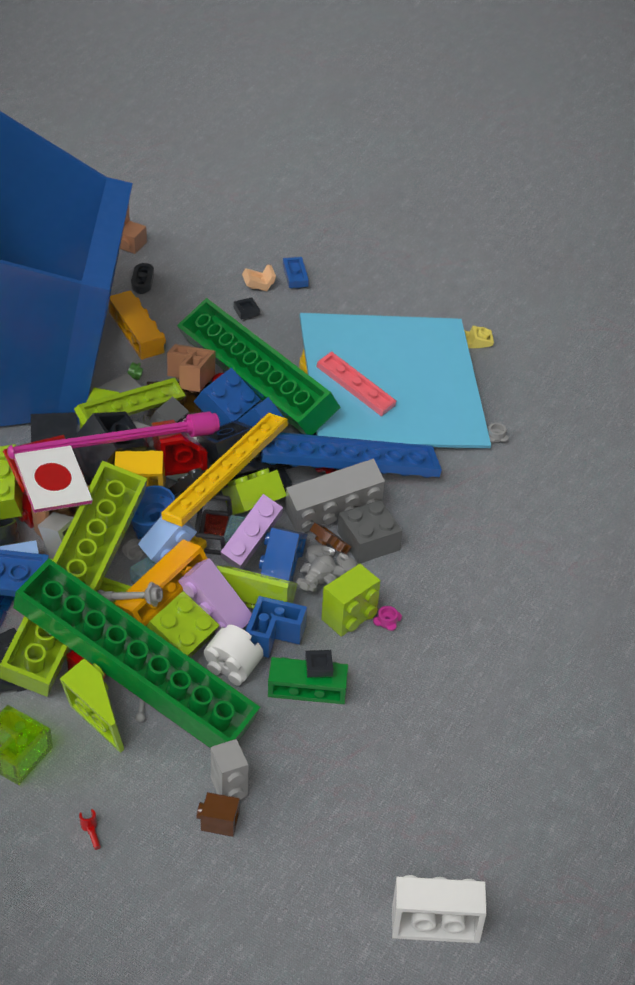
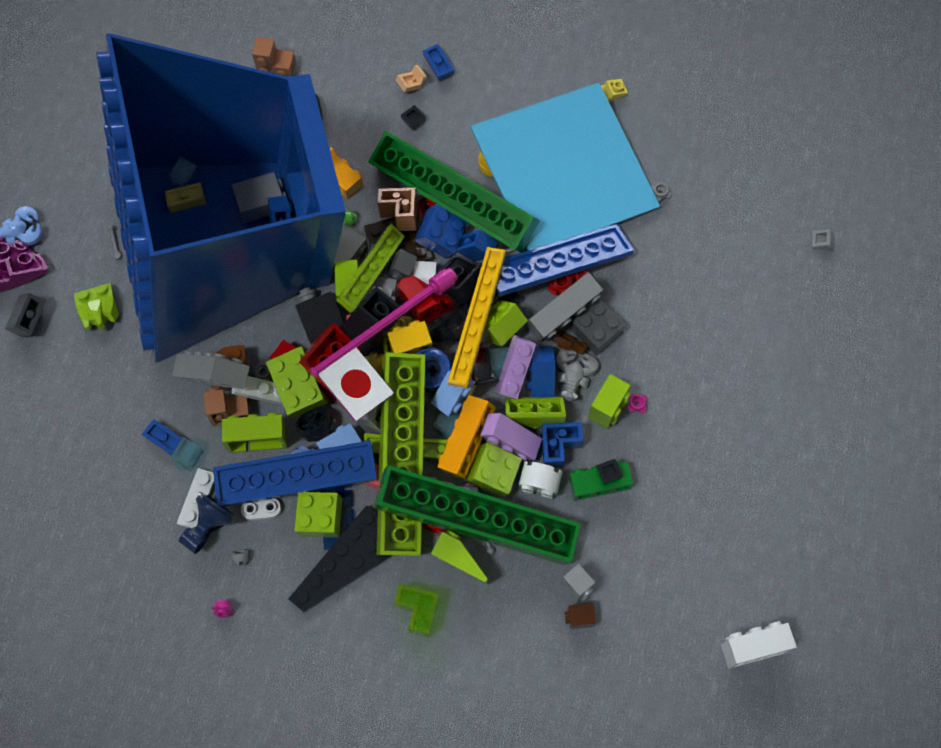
camera: 15 degrees left, 25 degrees up
(90, 826) = (495, 656): red hand -> none
(152, 594) = (468, 457): light grey piece -> none
(356, 383) = (540, 185): coral tile -> none

